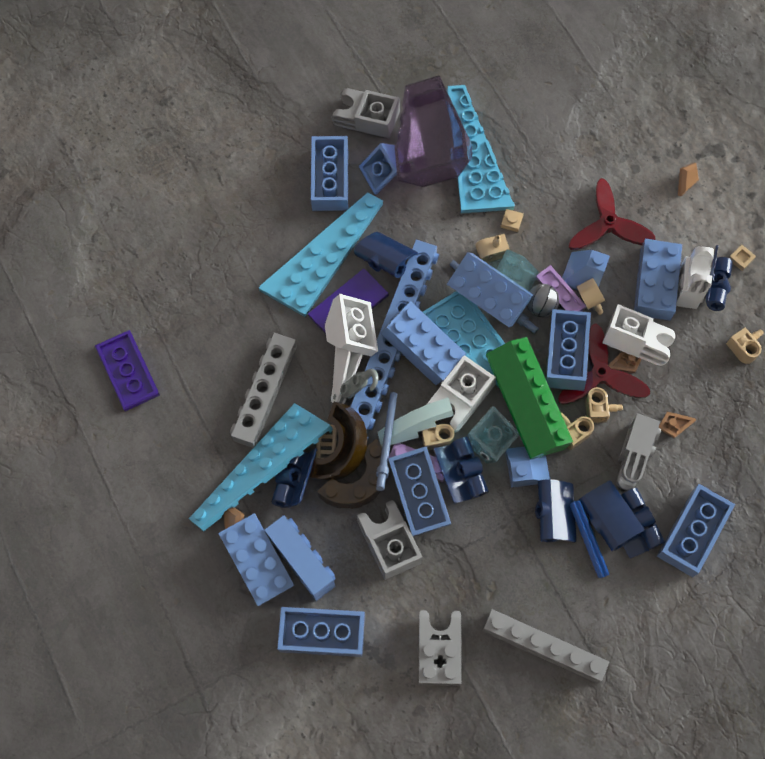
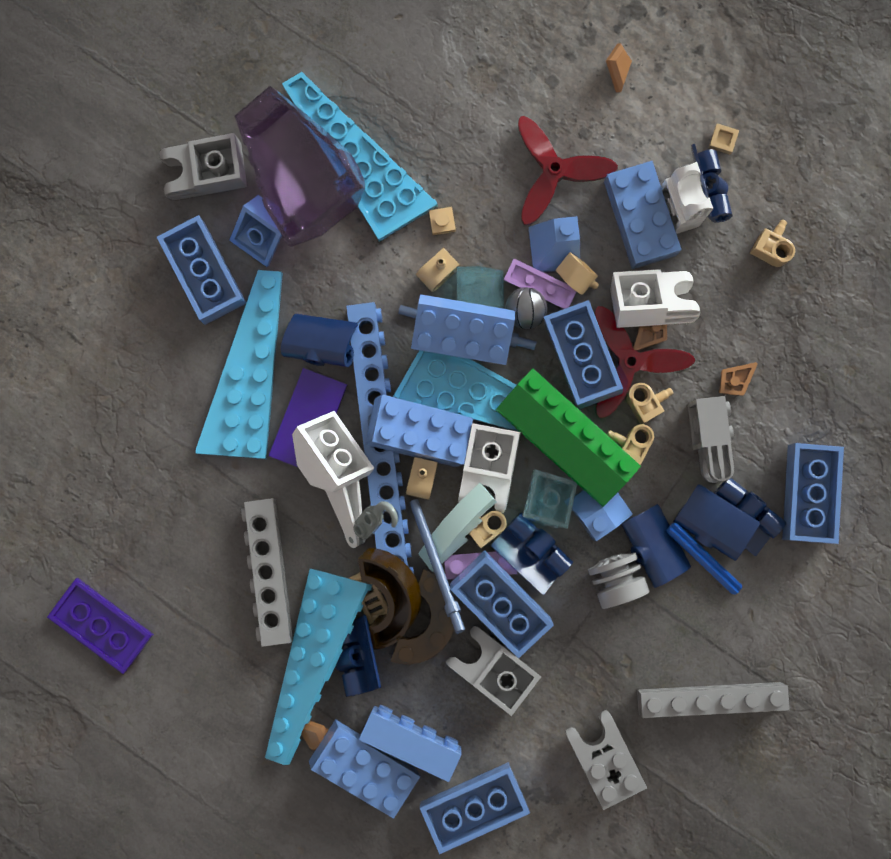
camera: 25 degrees left, 15 degrees up
(408, 379) = (421, 478): none -> tan piece
(516, 517) = (618, 580): none -> light grey wheel

